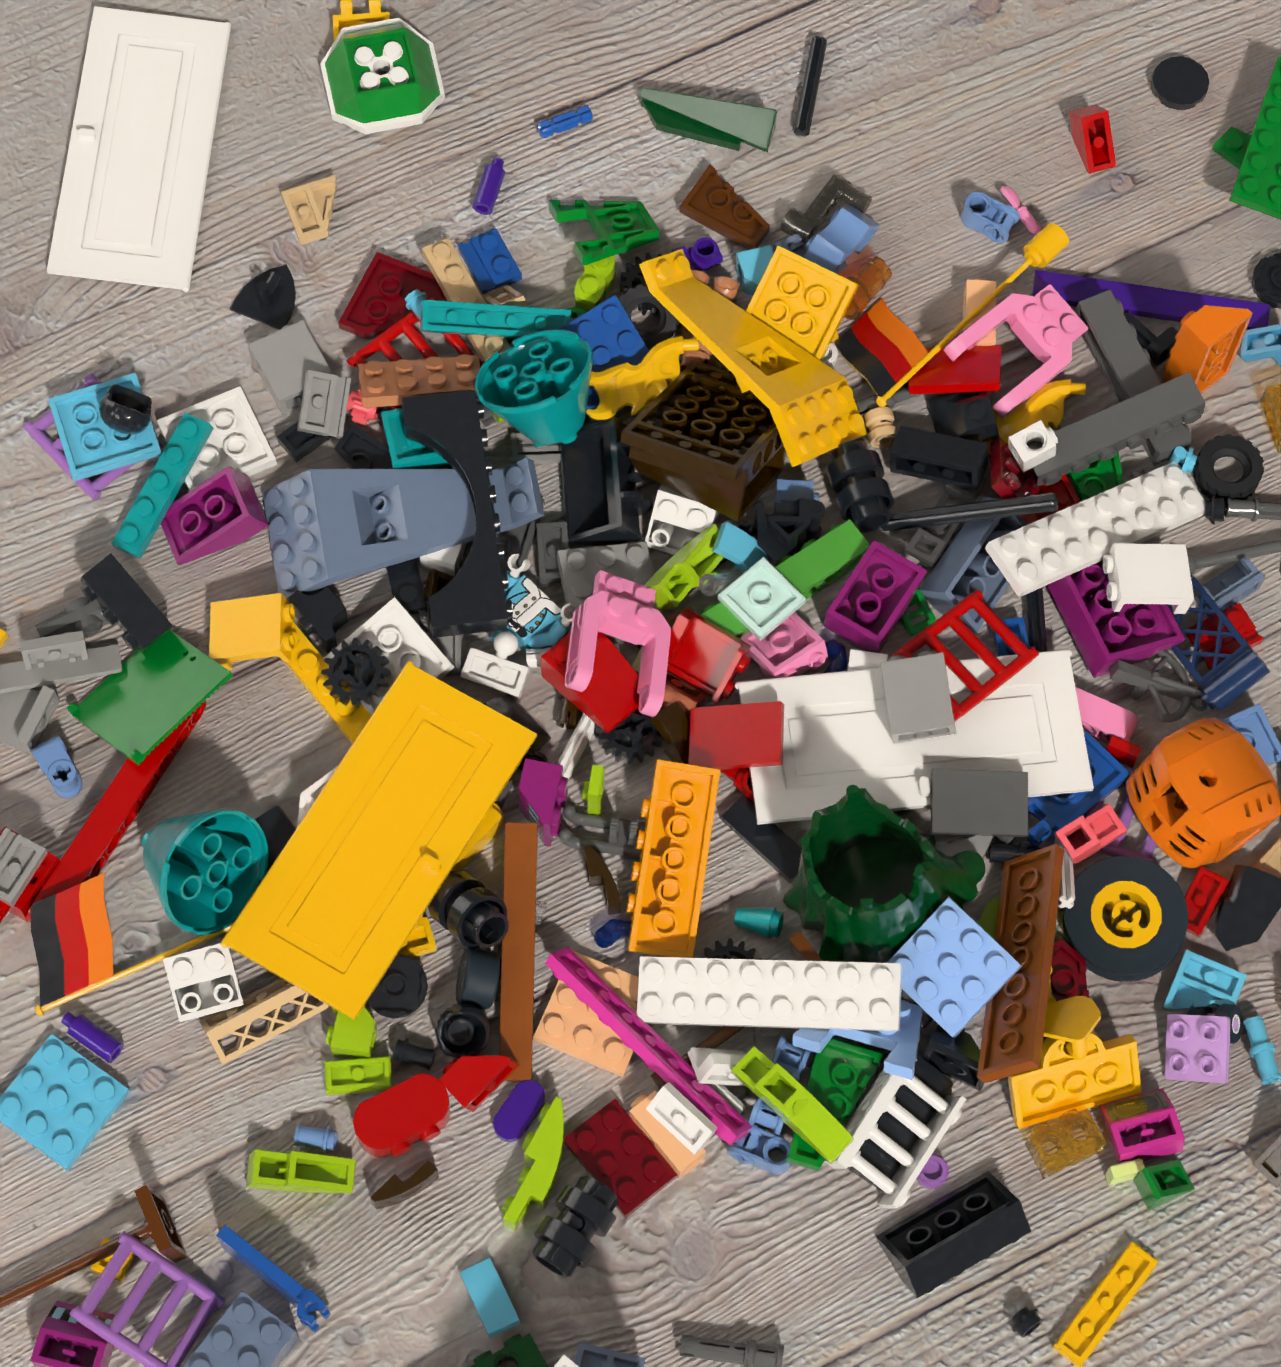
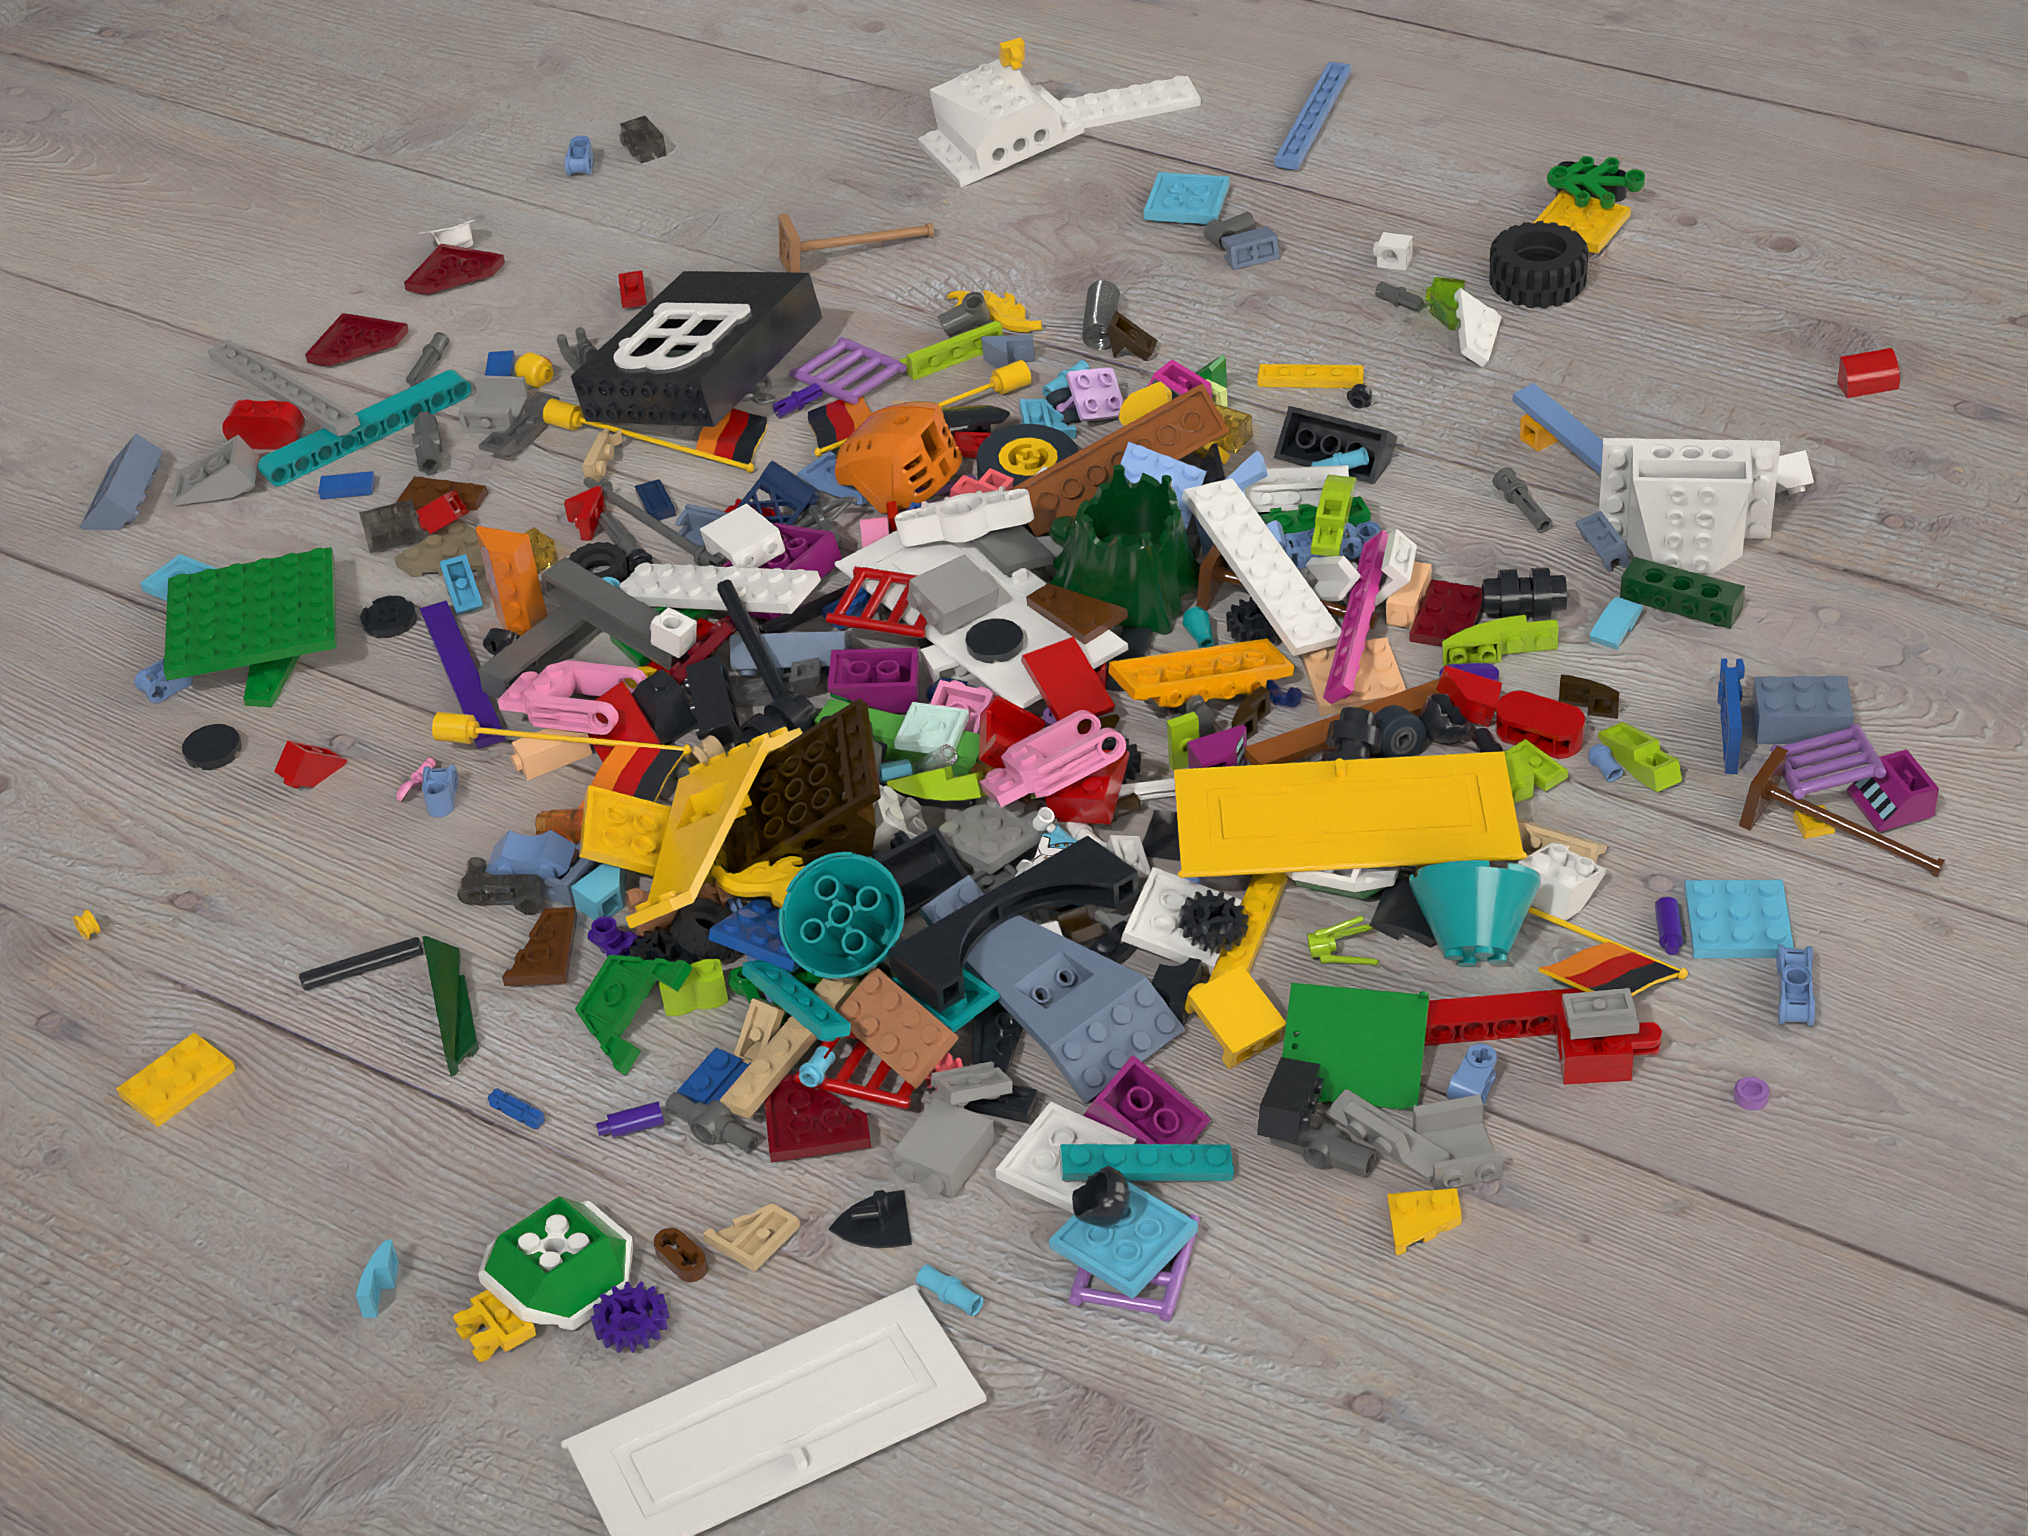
camera: 115 degrees left, 25 degrees down
(160, 302) = (949, 1290): none -> medium azure pin
(283, 757) = (1323, 942): none -> lime plant
(296, 100) = (630, 1317): none -> dark purple gear
(334, 160) = (685, 1250): none -> reddish brown beam
(443, 227) = (711, 1122): none -> dark grey pin
(824, 790) = (1075, 612): none -> reddish brown wing
(839, 708) = (994, 640): none -> black tile
(913, 1210) = (1352, 459): none -> medium azure pin
(1057, 754) = (964, 516): none -> white piece

